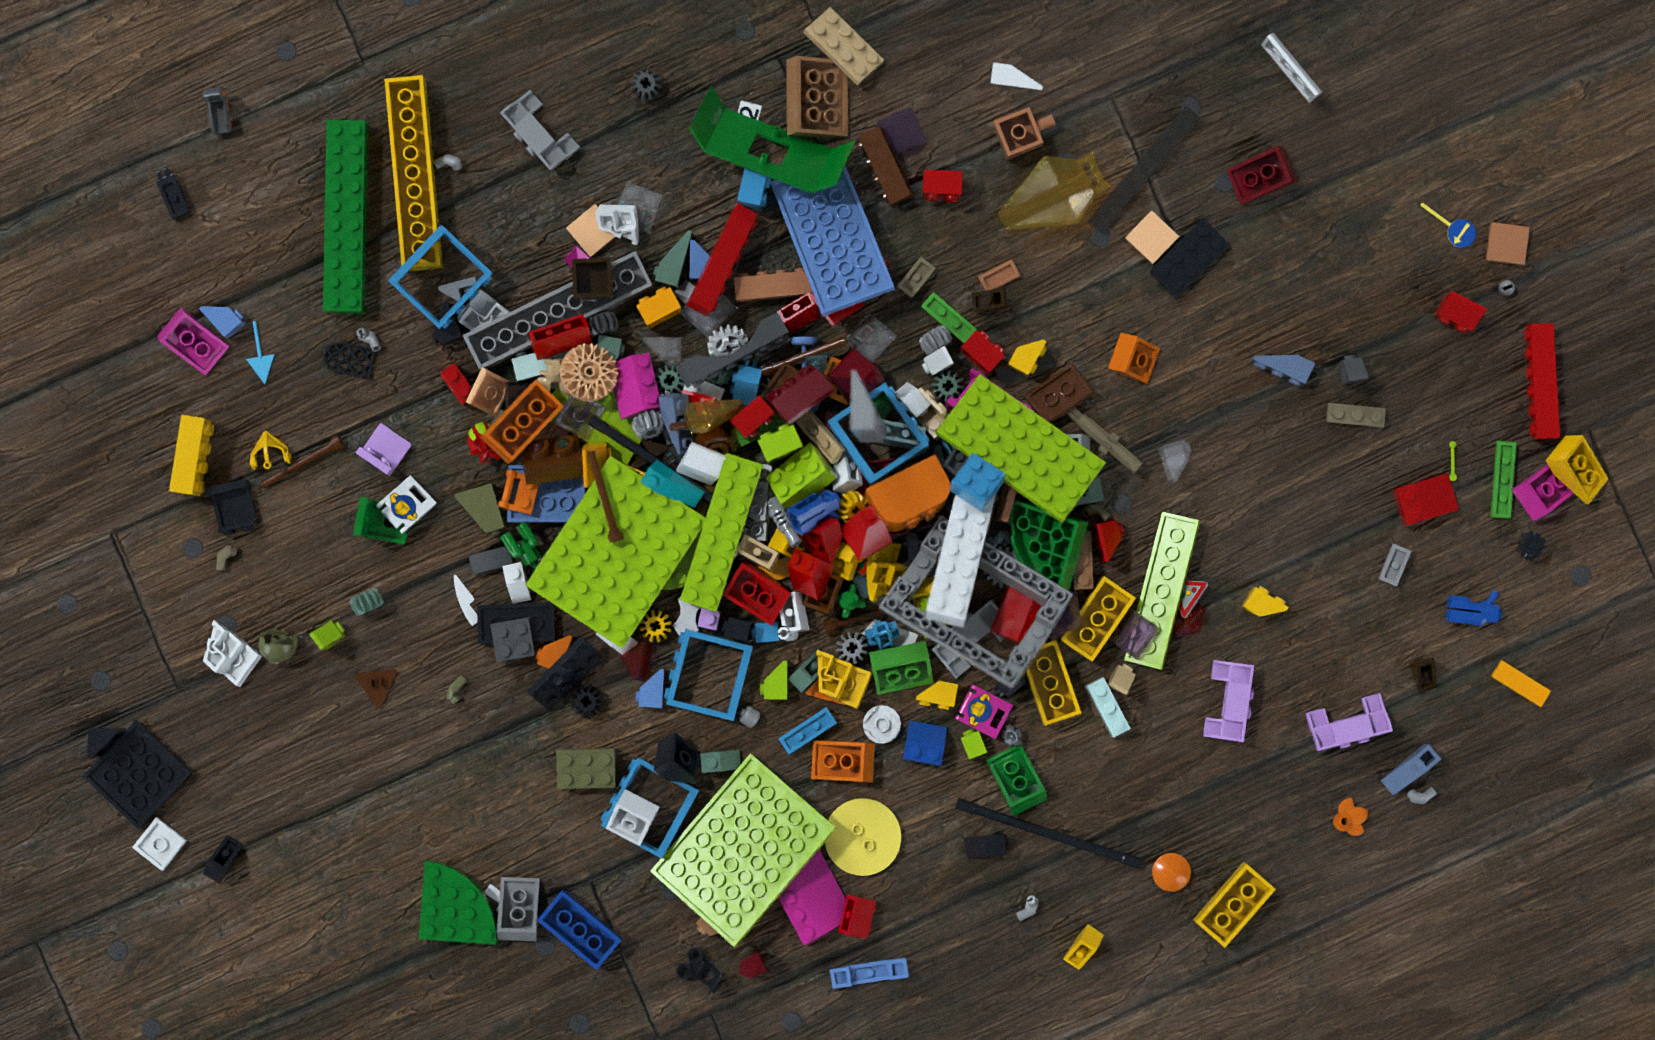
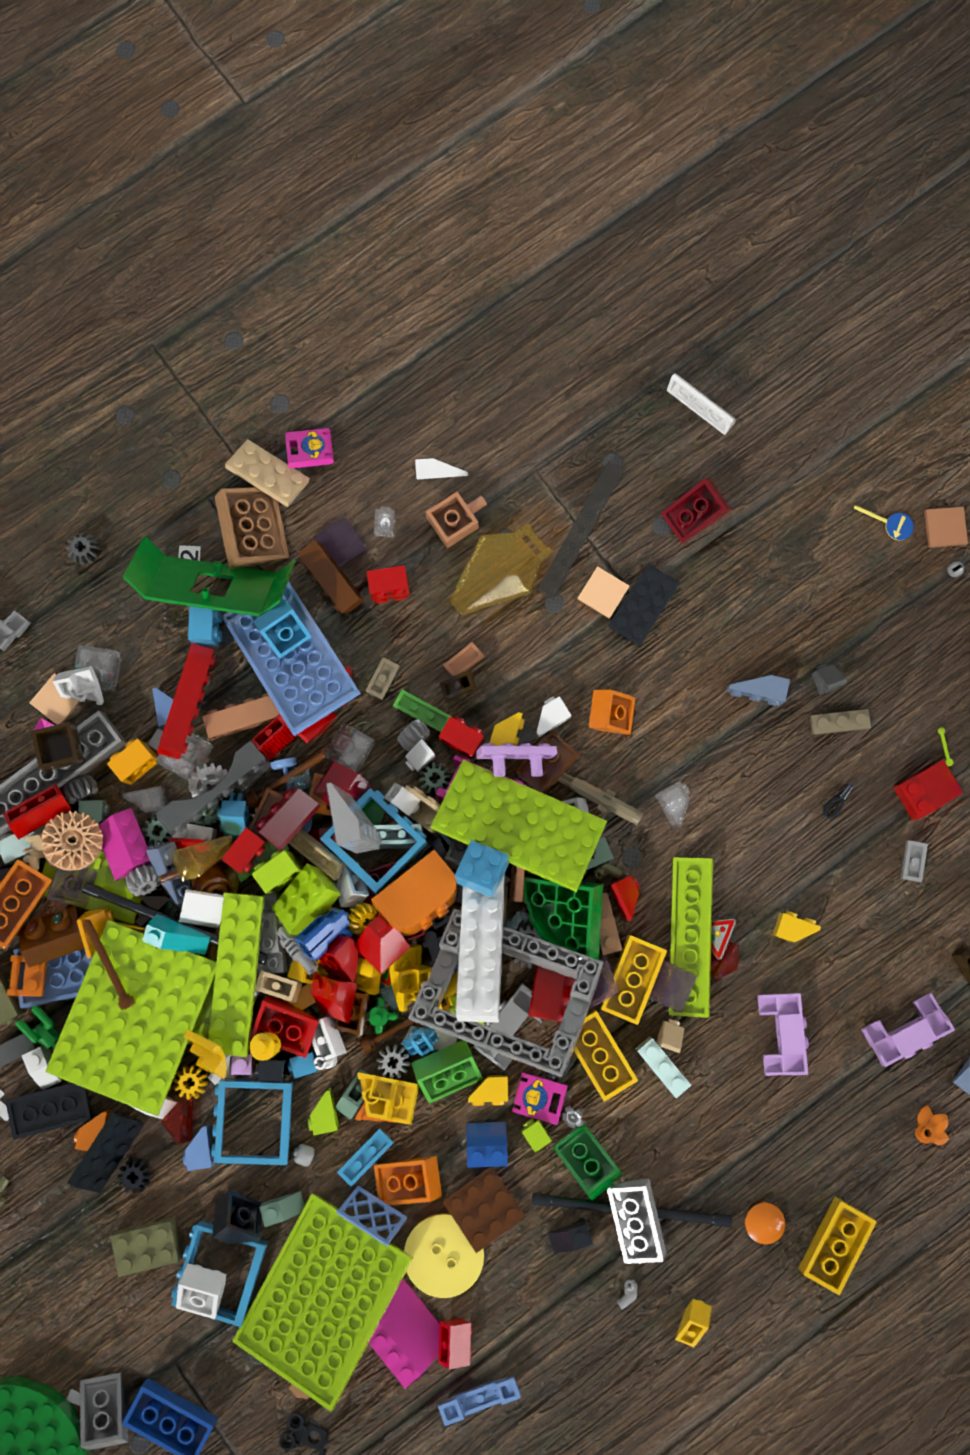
camera: 10 degrees left, 5 degrees down
(512, 639) = (46, 1128): dark grey plate -> none
(672, 265) = (141, 715): sand green slope -> none
(681, 600) = (209, 1053): none -> yellow slope
(736, 605) = (265, 1046): none -> yellow piece
(752, 964) = (356, 1421): dark red brick -> none
(821, 799) = (371, 1199): none -> medium blue window
(831, 210) = (282, 629): none -> dark azure brick
(881, 724) = (439, 1133): white tile -> none
(894, 30) = (313, 448): none -> dark pink container
(909, 801) = (483, 1208): none -> reddish brown plate
(950, 120) = (384, 522): none -> clear brick
(1039, 378) = (524, 751): none -> lavender plate
(1051, 843) = (637, 1221): none -> light grey slope
(1074, 349) = (552, 715): none -> white slope
(1340, 489) = (842, 797): none -> black piece
(1459, 312) = (918, 600): red slope -> none

